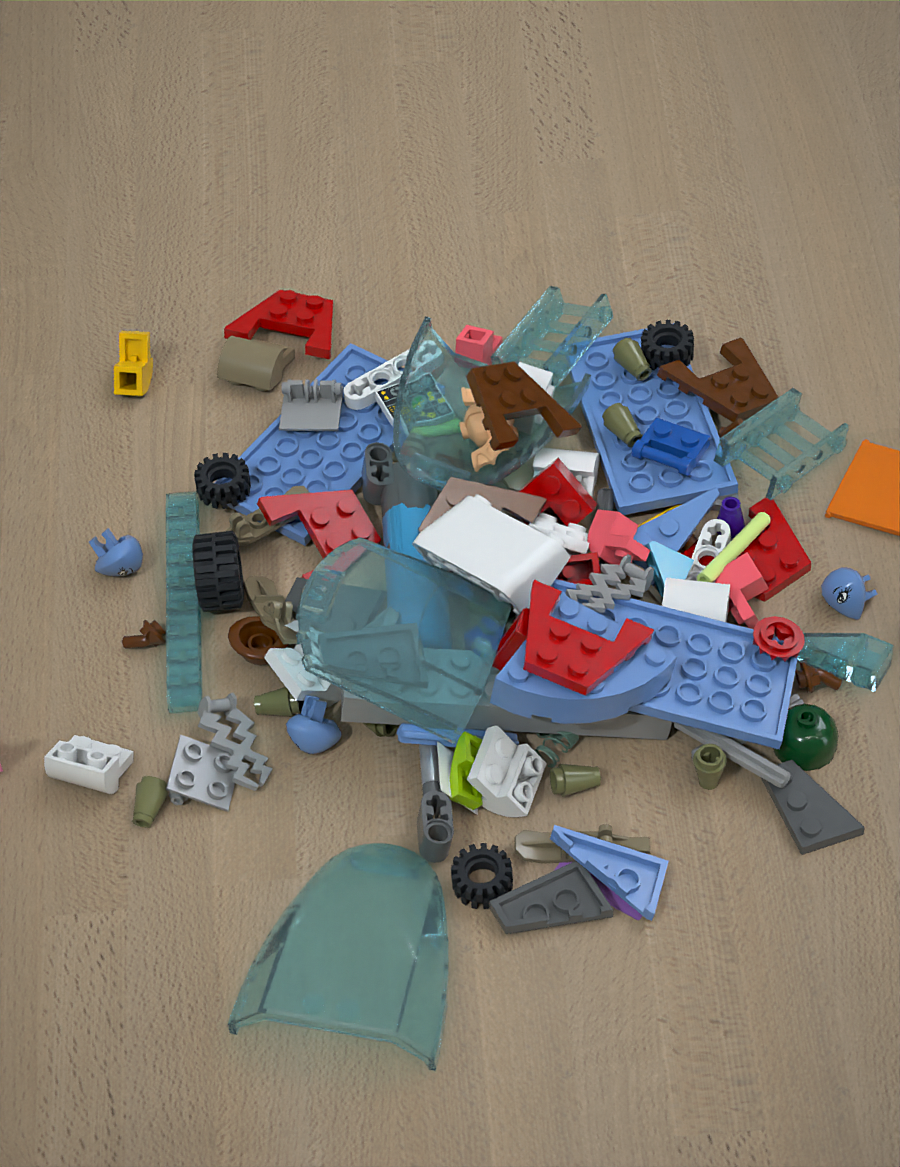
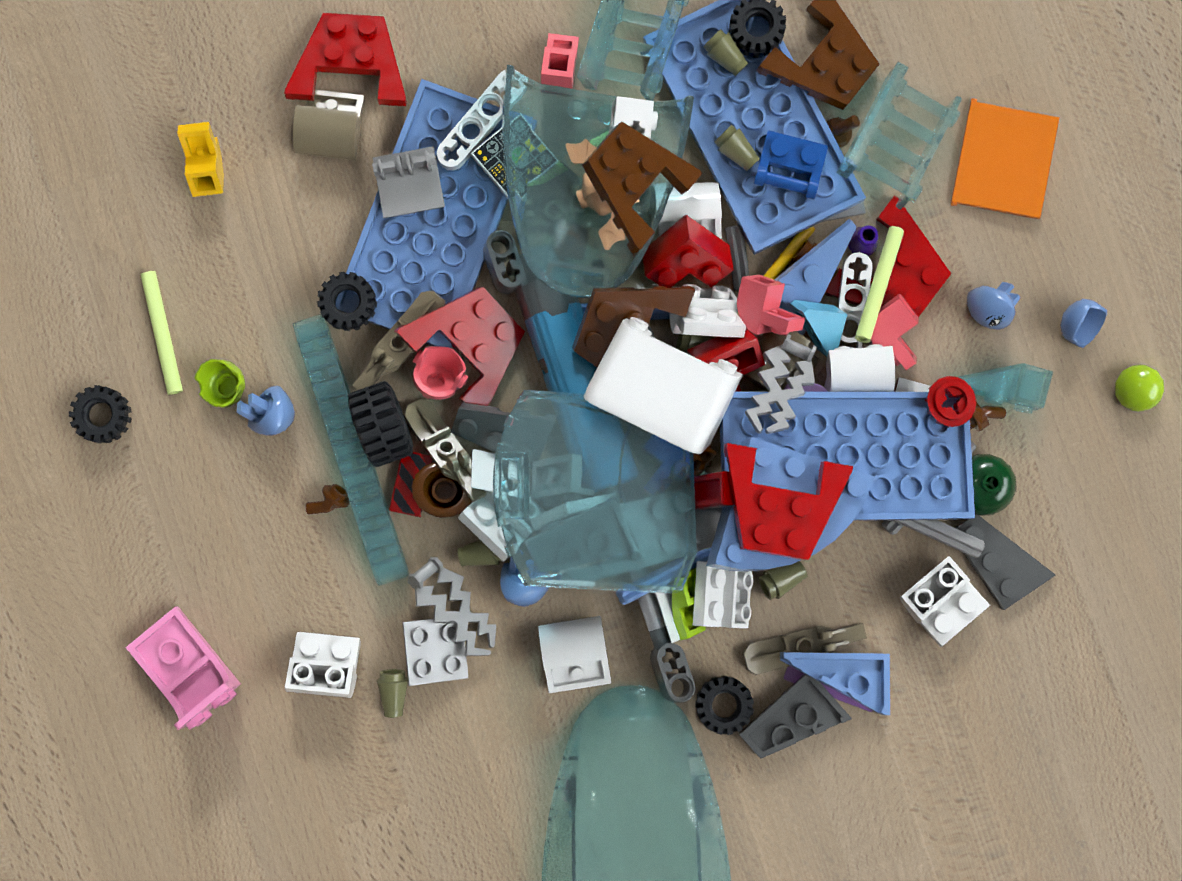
camera: 20 degrees left, 35 degrees up
(44, 488) = (161, 332): none -> yellowish green piece
(81, 524) = (220, 382): none -> lime hair
(219, 649) = (402, 497): none -> red tile
(287, 550) = (438, 372): none -> coral cap
(341, 802) = (574, 654): none -> white brick
(709, 765) = (916, 546): olive cone -> none
(735, 821) = (944, 601): none -> white brick

